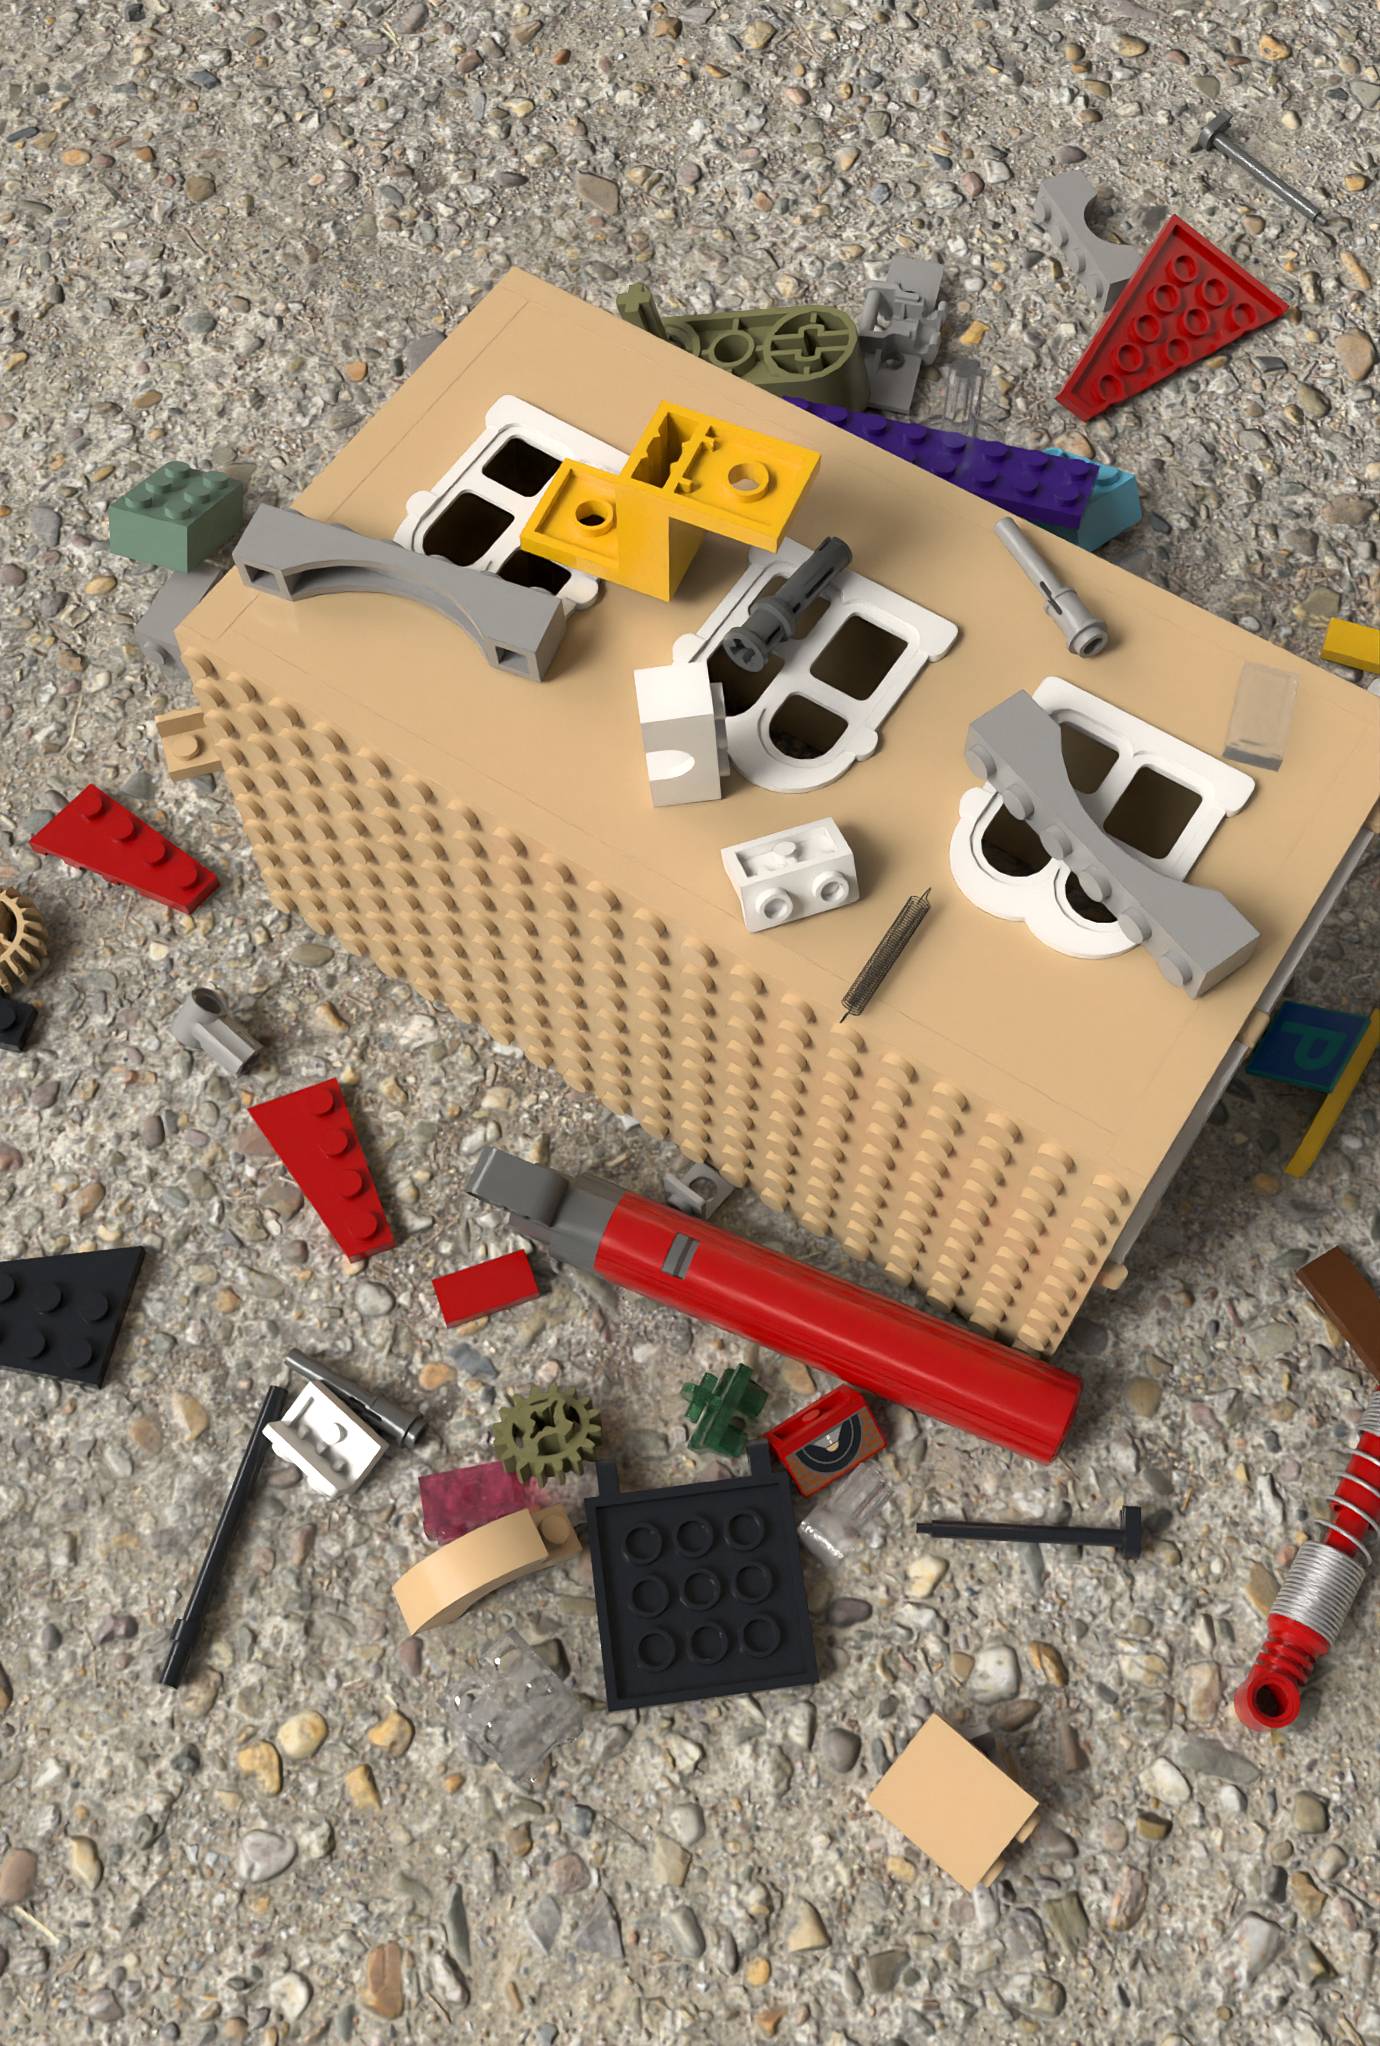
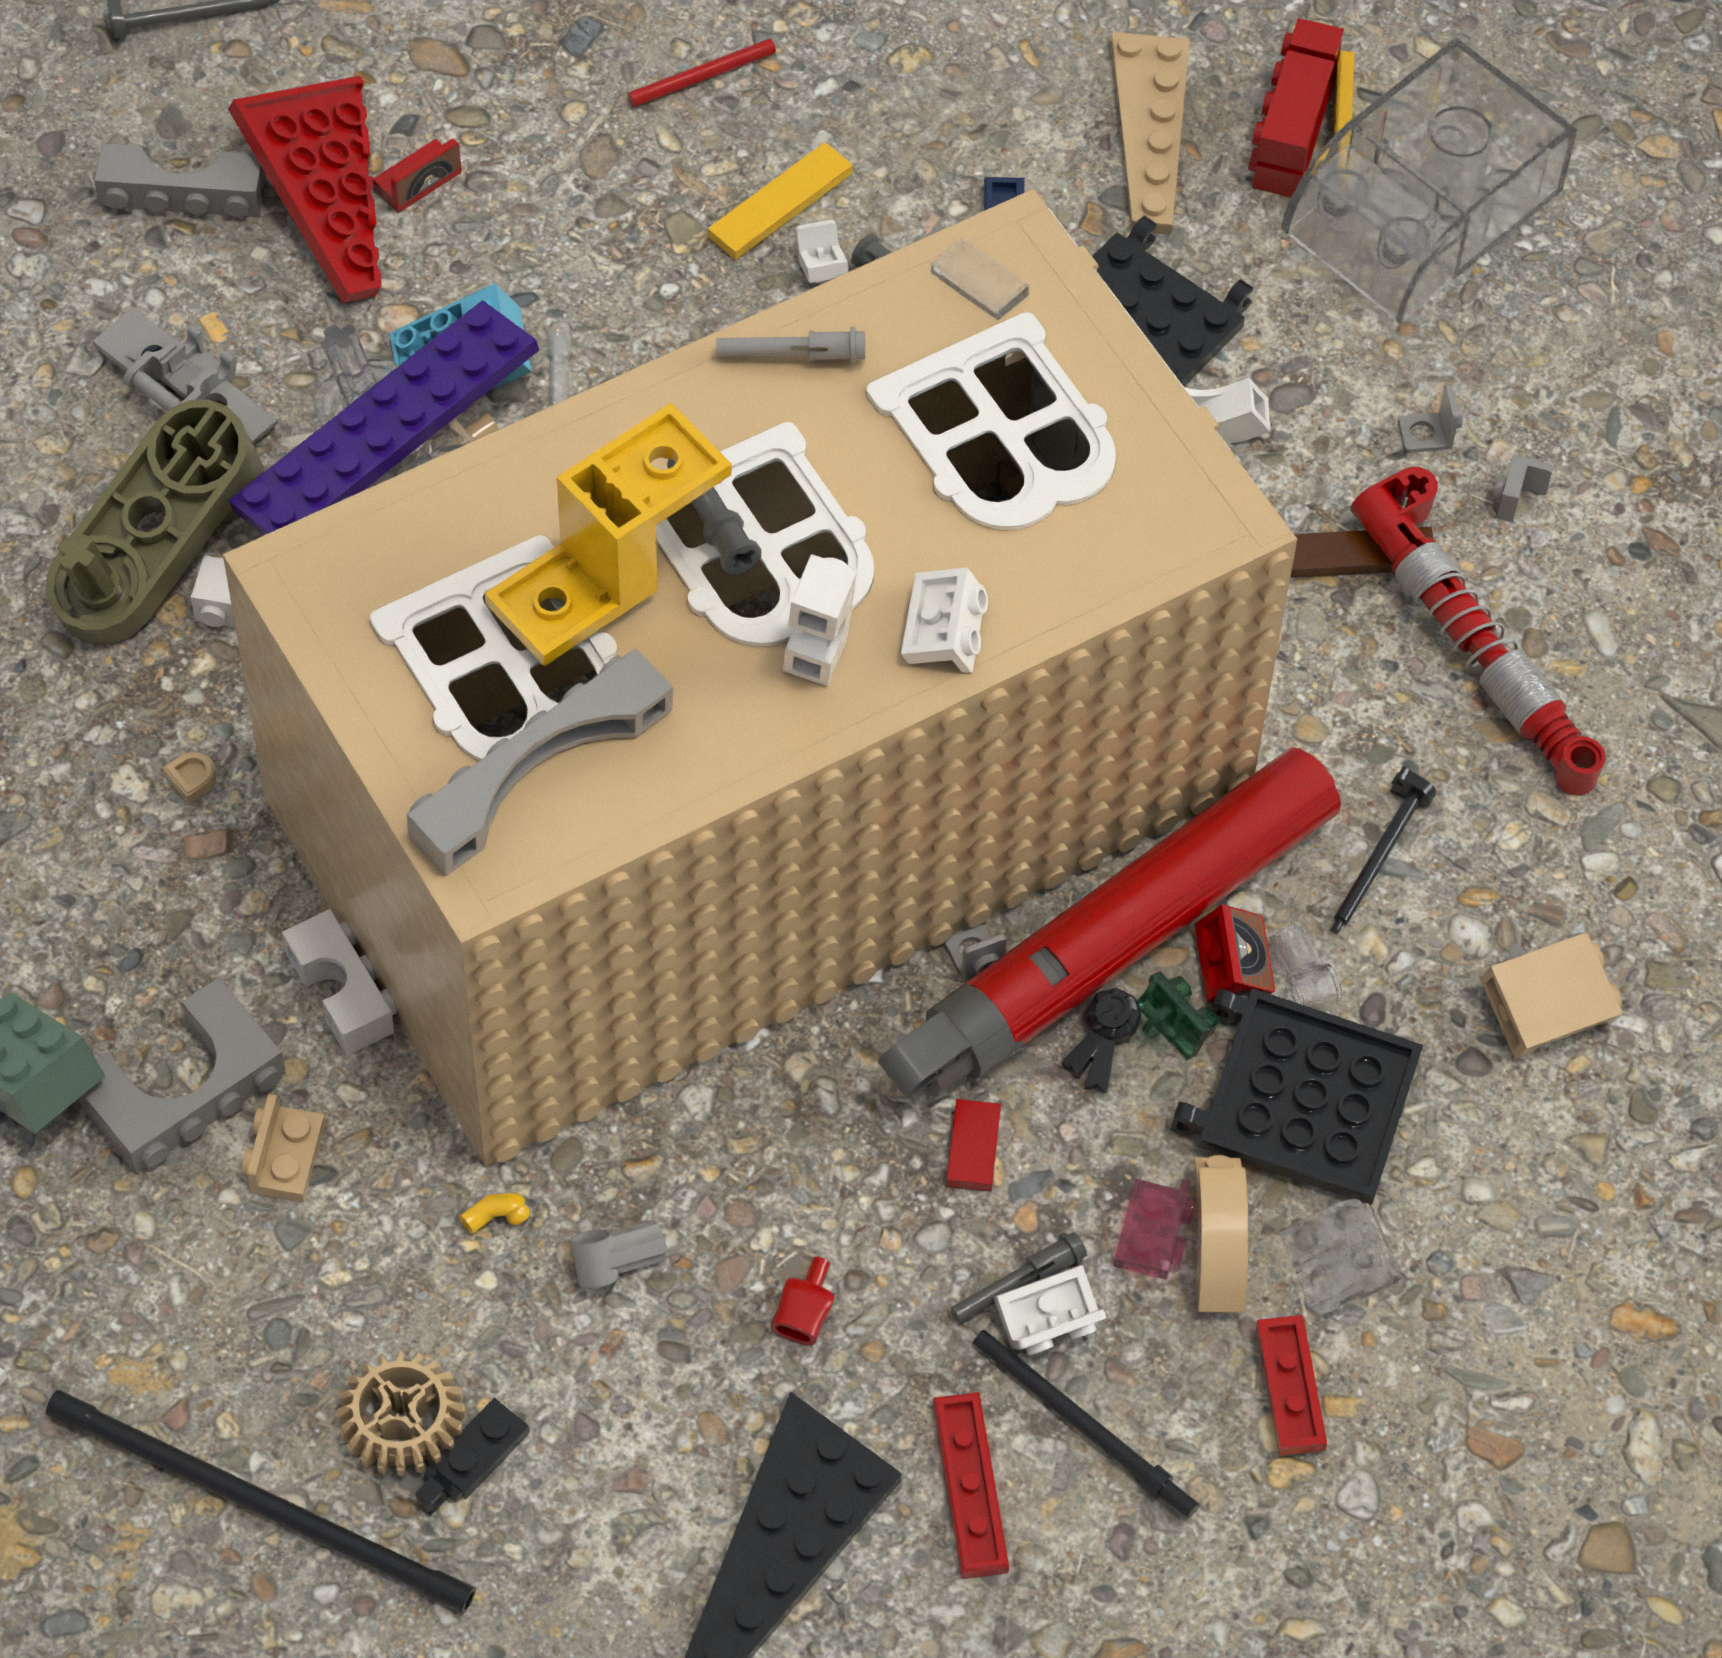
camera: 65 degrees left, 5 degrees down
(113, 1455) = (970, 1485): none -> red tile
(122, 848) = (348, 1273): red wing -> none
(227, 922) = (493, 1206): none -> yellow arm
(239, 1215) = (804, 1305): none -> red piece
(323, 1155) = (776, 1218): red wing -> none
(350, 1723) = (1291, 1385): none -> red plate
(547, 1434) = (1151, 1141): olive gear -> none
(684, 1352) = (1111, 1019): none -> black piece
(886, 958) = (1048, 594): black piece -> none
(1183, 926) = (946, 433): light grey arch -> none
(1223, 391) = (419, 174): none -> panel

